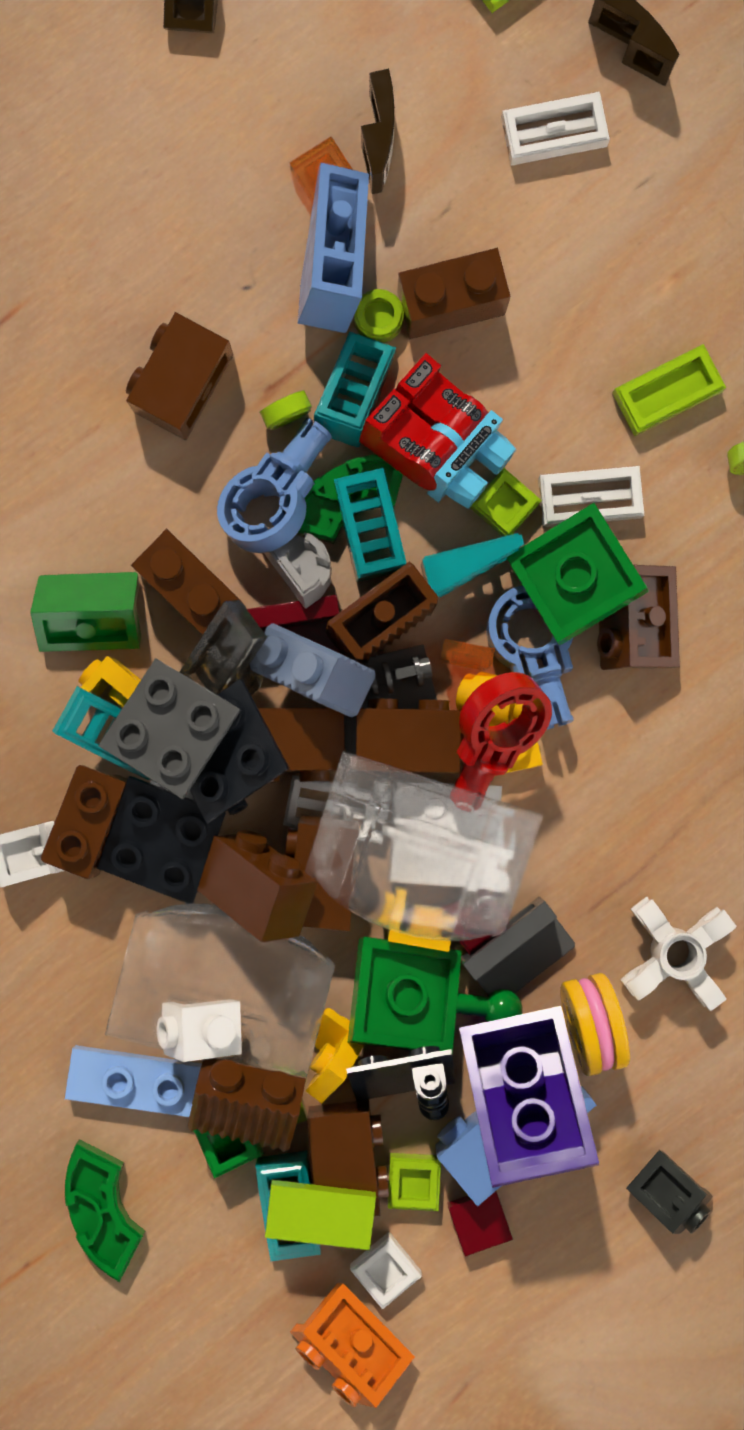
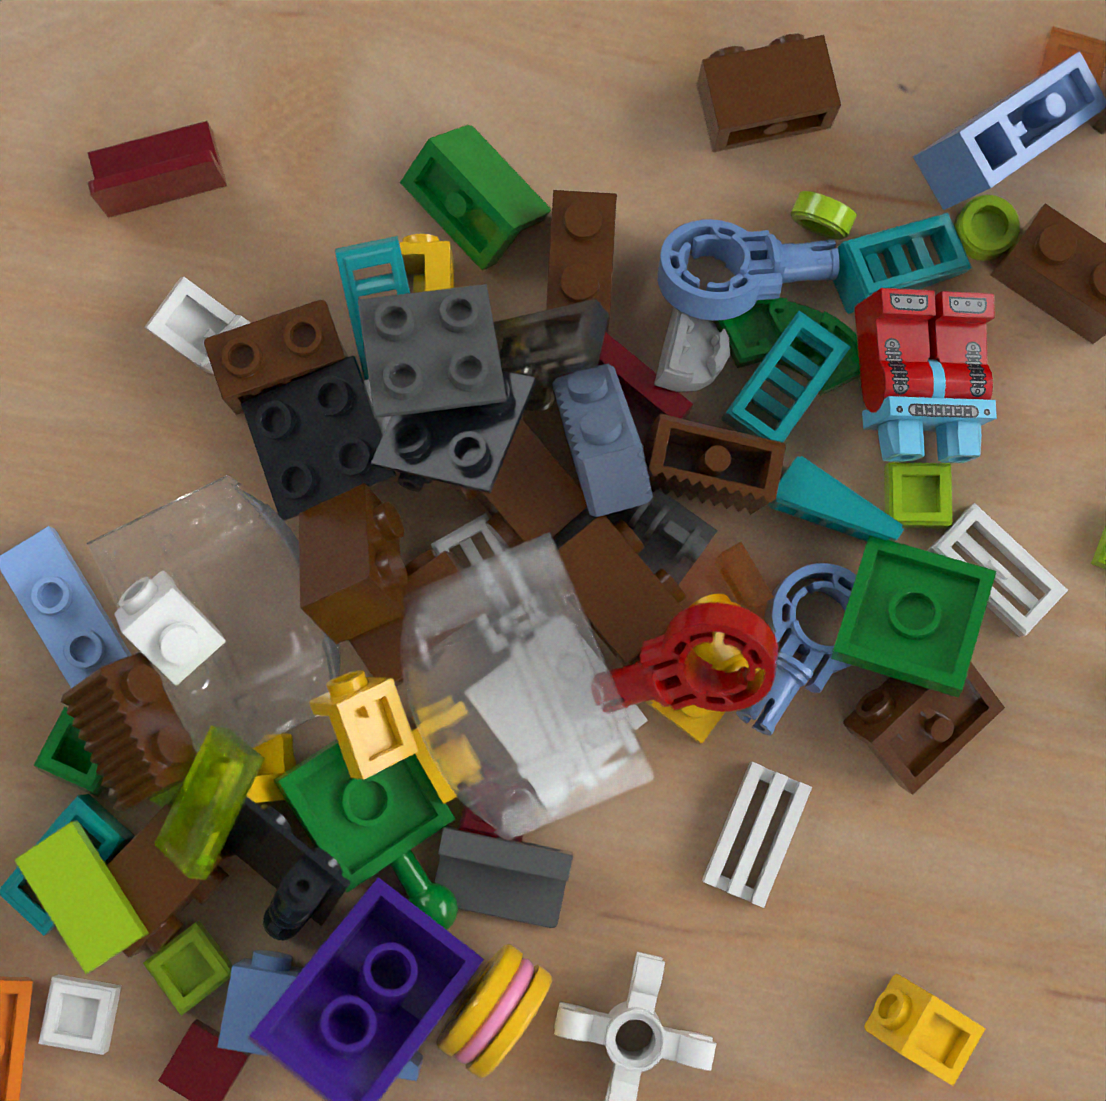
camera: 50 degrees right, 5 degrees down
(330, 1093) = (209, 802): none -> clear neon green tile
(361, 958) = (366, 722): none -> yellow bracket
(642, 815) = (780, 843): none -> white tile

